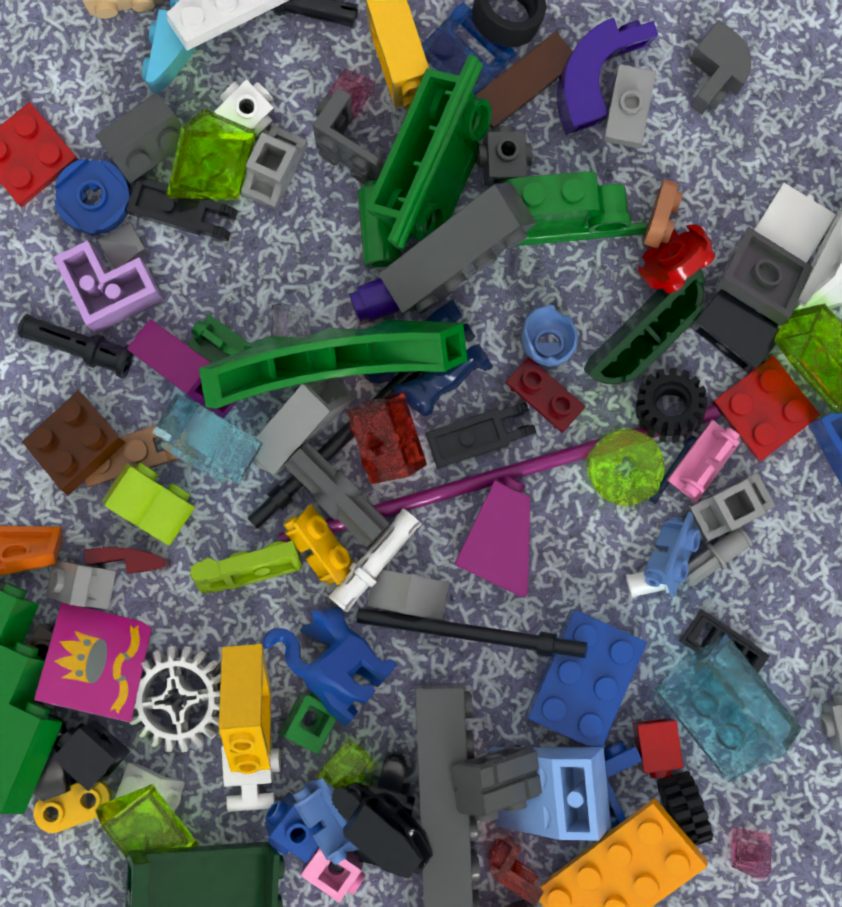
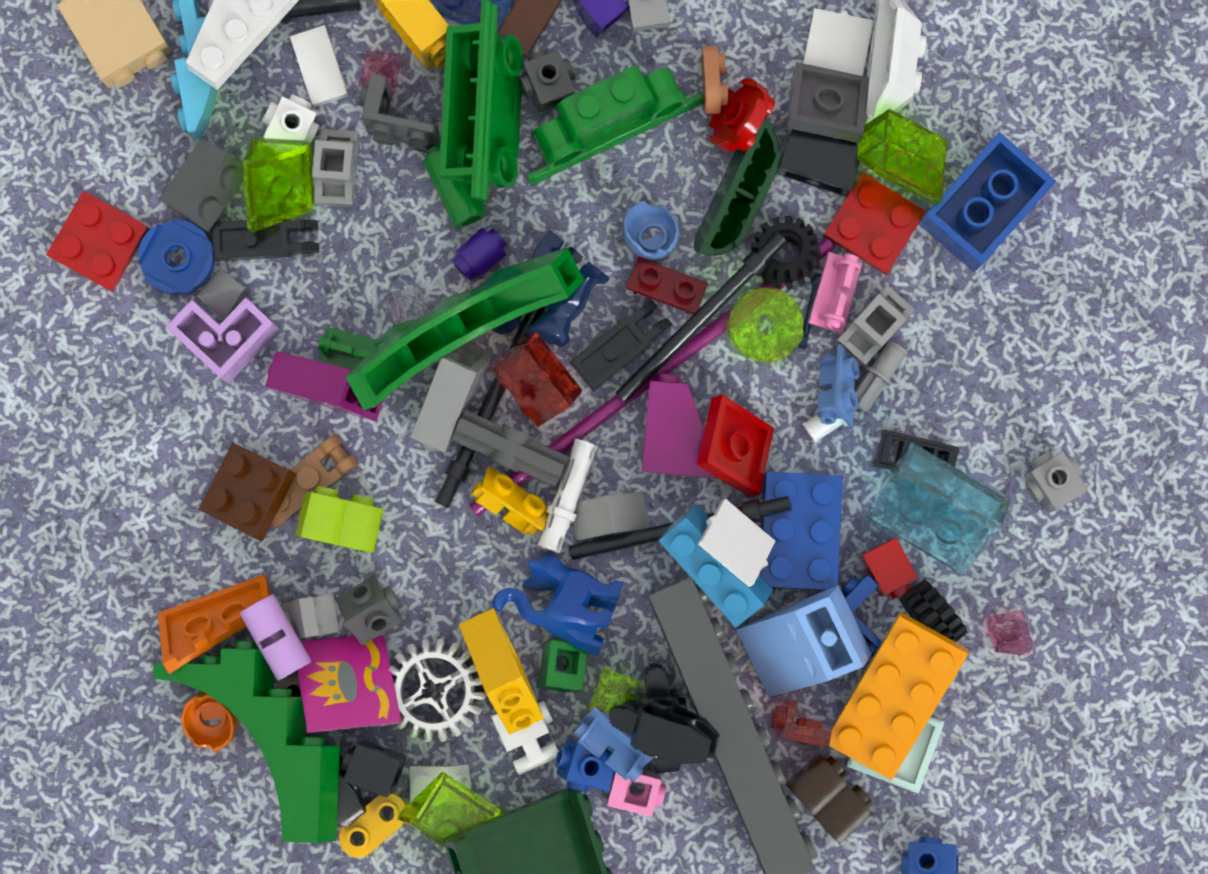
camera: 20 degrees left, 0 degrees up
(41, 594) = (275, 637): none -> lavender pin
(92, 349) = (231, 400): black pin -> none
(135, 560) = (347, 578): dark red slope -> none
(145, 598) = (369, 609): none -> dark grey brick
(206, 440) = (372, 442): clear light blue brick -> none
(246, 567) = (451, 547): lime hinge -> none
(294, 66) = (319, 66): none -> white tile
(458, 249) = (538, 182): dark grey wedge -> none
(491, 684) = (717, 582): none -> dark azure brick
(496, 782) = (752, 650): dark grey brick -> none
(520, 671) = (736, 542): none -> white piece
(553, 573) = (735, 446): none -> red plate
(636, 405) = (753, 265): none -> black bar

